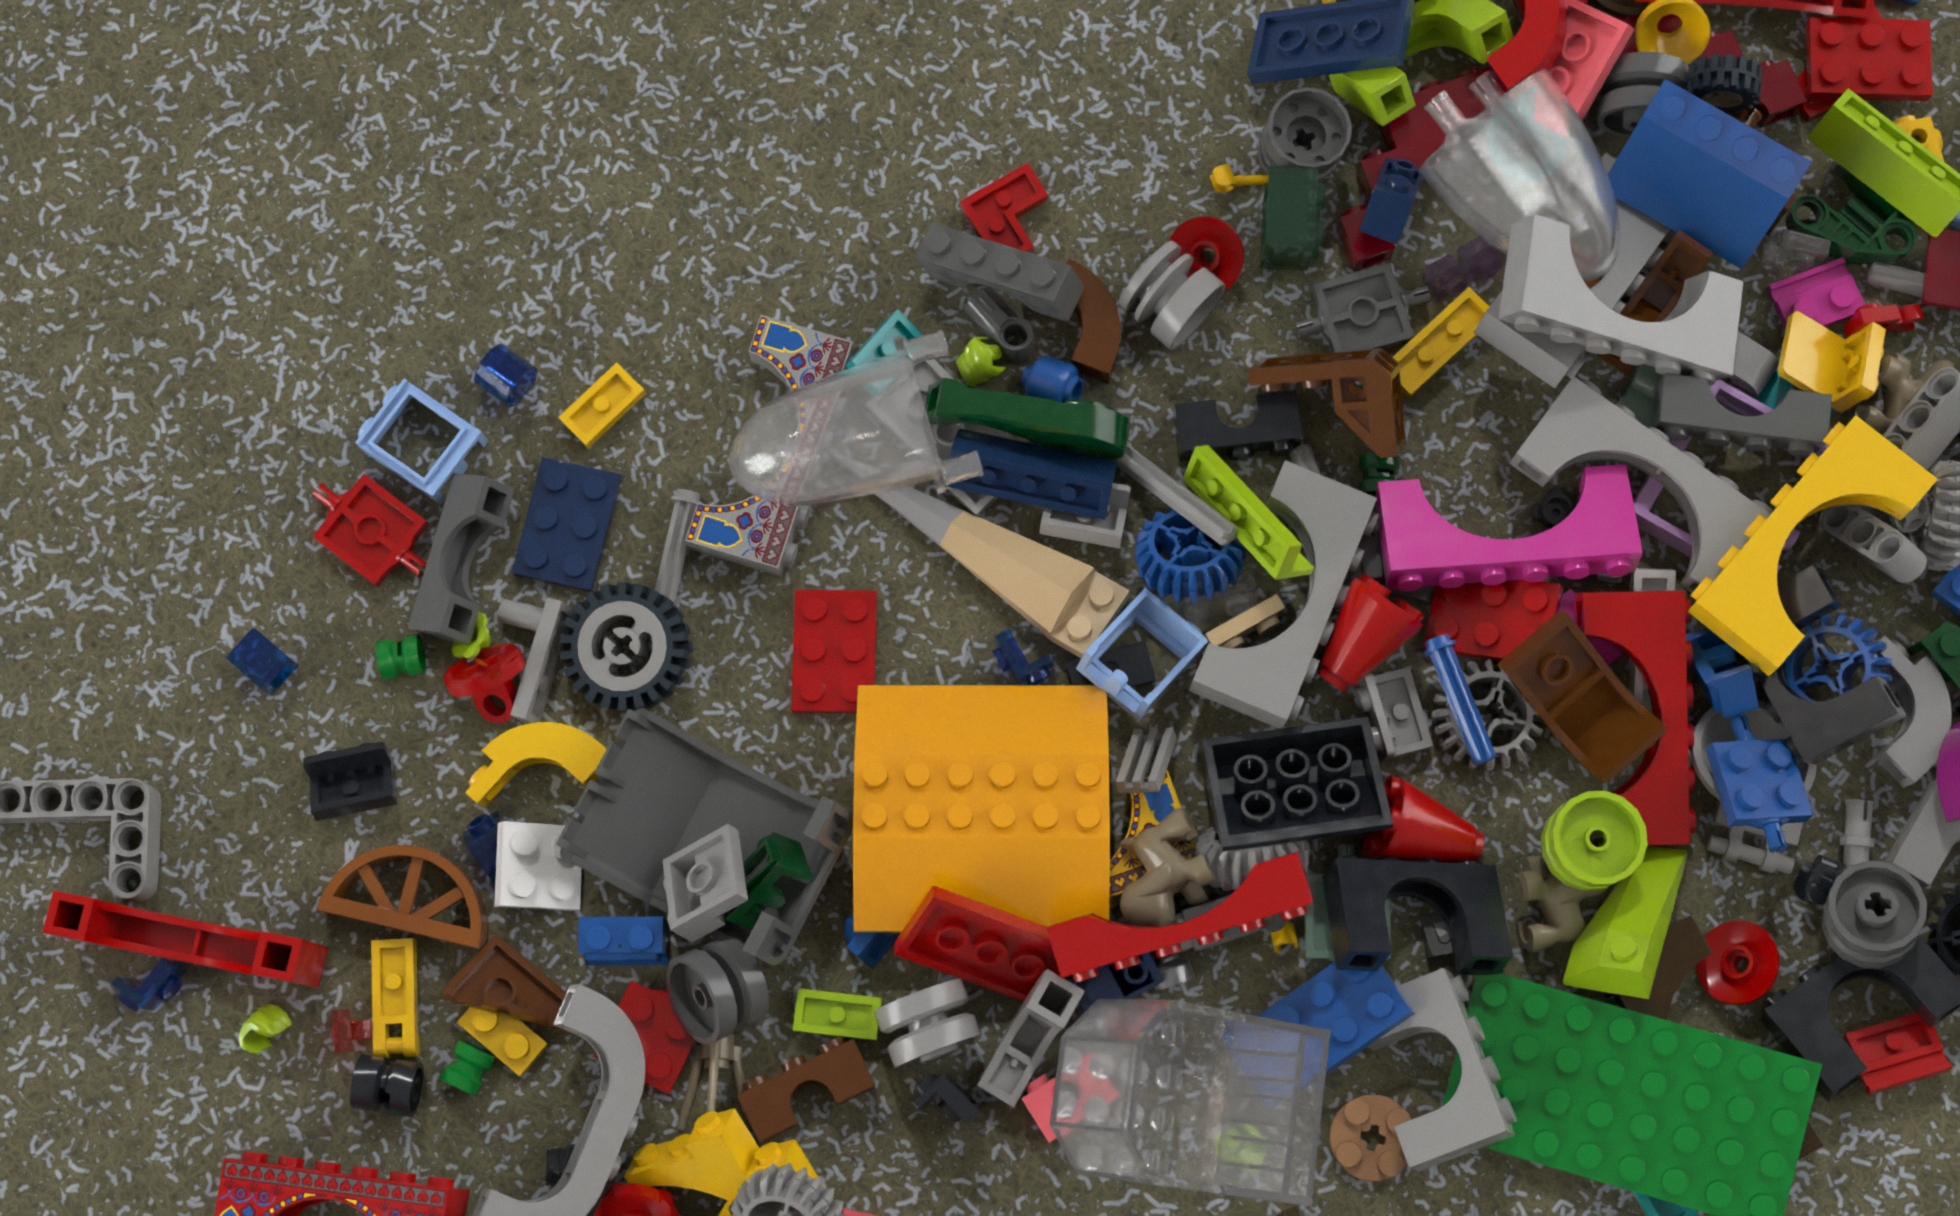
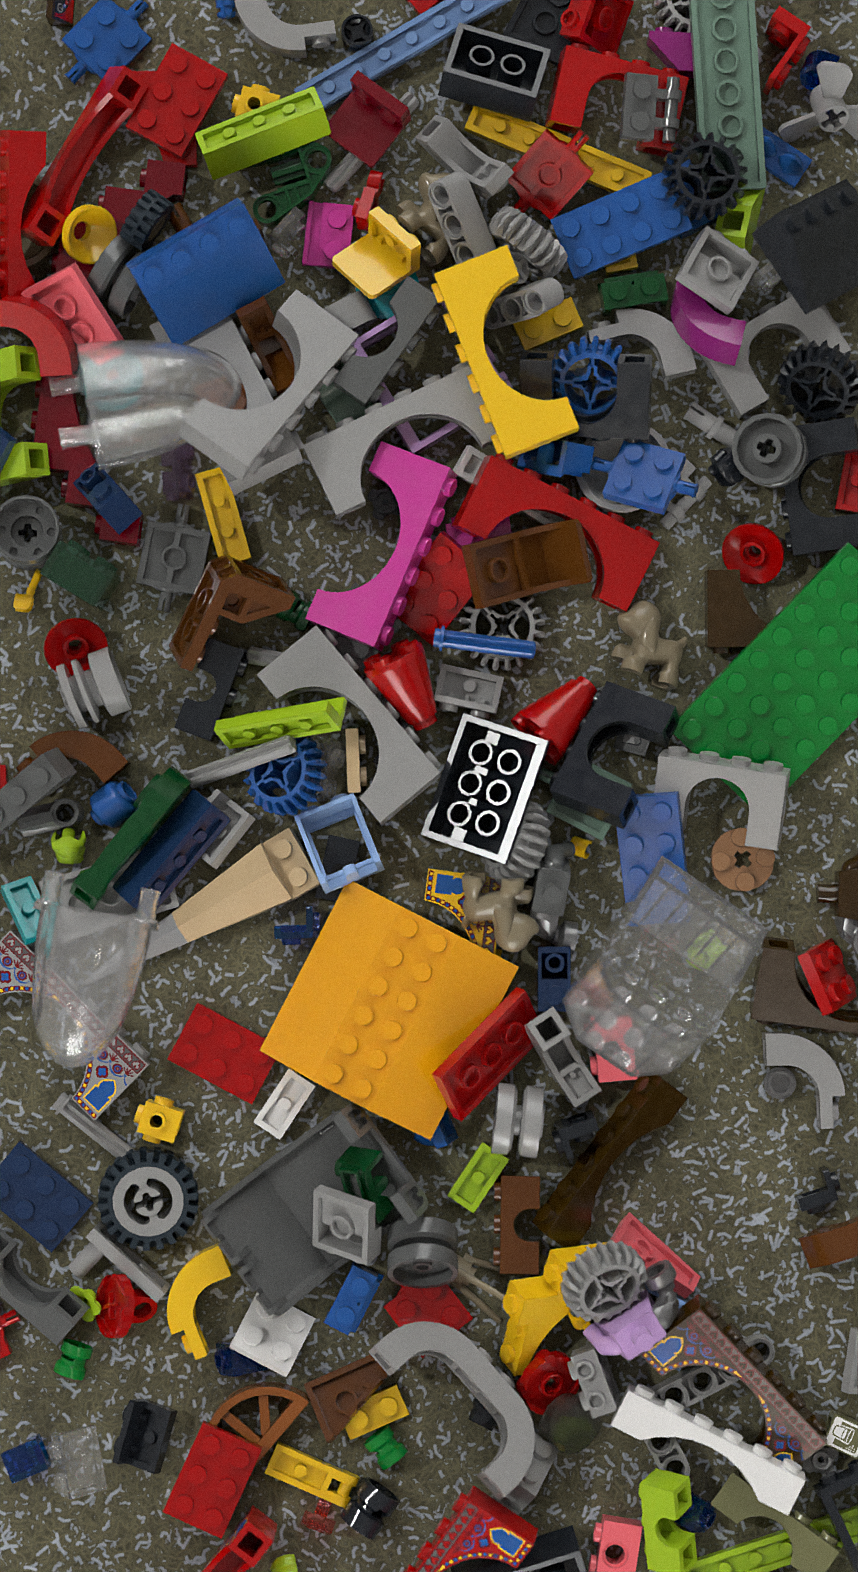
camera: 70 degrees left, 10 degrees up
(285, 722) = (77, 1462): none -> clear bracket
(334, 880) = (212, 1479): none -> red plate
(728, 626) = (170, 1115): none -> yellow brick
(811, 747) = (284, 1103): none -> white plate
(1022, 1172) = (569, 1209): none -> dark brown arch
(1094, 941) = (525, 981): red arch -> none
(1138, 761) = (411, 883): light grey tile -> none
(1612, 825) = (623, 629): lime wheel -> none
(1628, 931) = (697, 618): lime wedge -> none
(1864, 591) = (549, 326): none -> yellow plate

